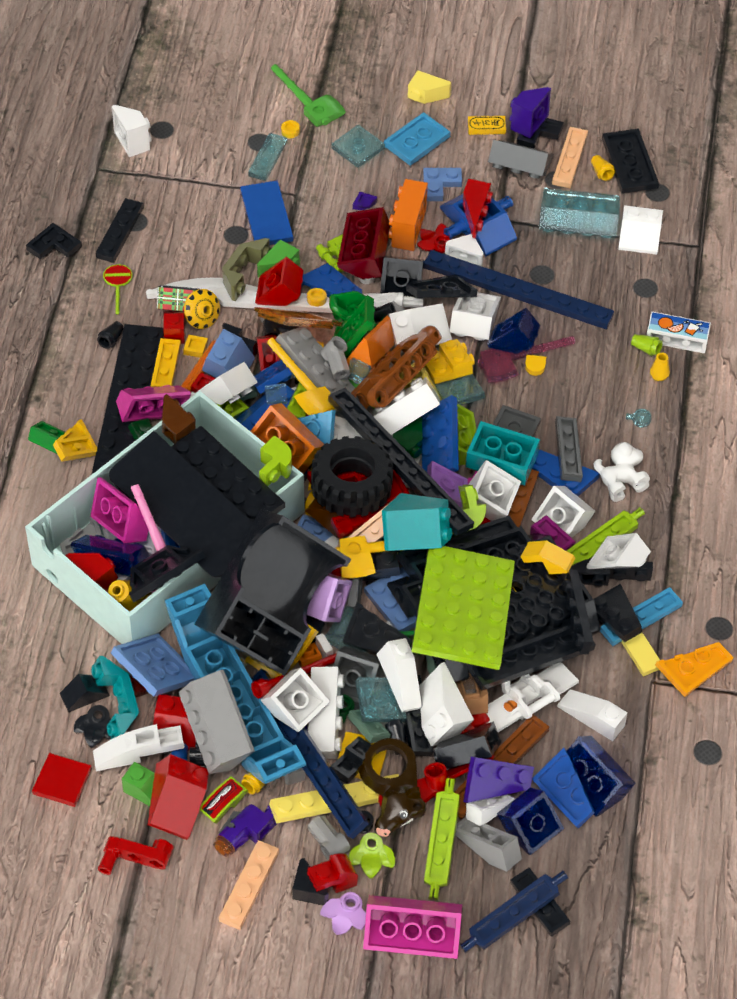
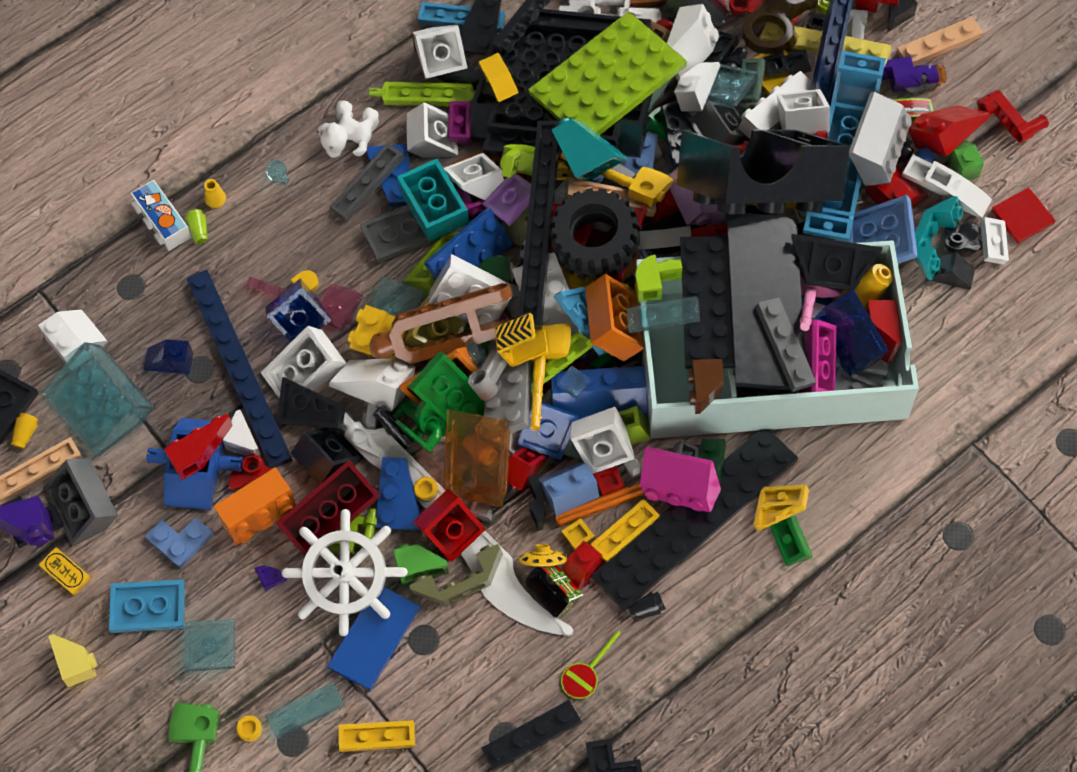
camera: 135 degrees left, 10 degrees up
(68, 737) = (994, 240): none -> white plate
(150, 484) = (785, 344): none -> dark grey plate
(210, 169) = (377, 736): none -> yellow plate
(244, 443) = (663, 314): none -> clear light blue tile
(314, 217) = (344, 572): none -> white piece
(336, 377) = (520, 340): none -> piece
(564, 261) = (169, 356): none -> clear blue slope

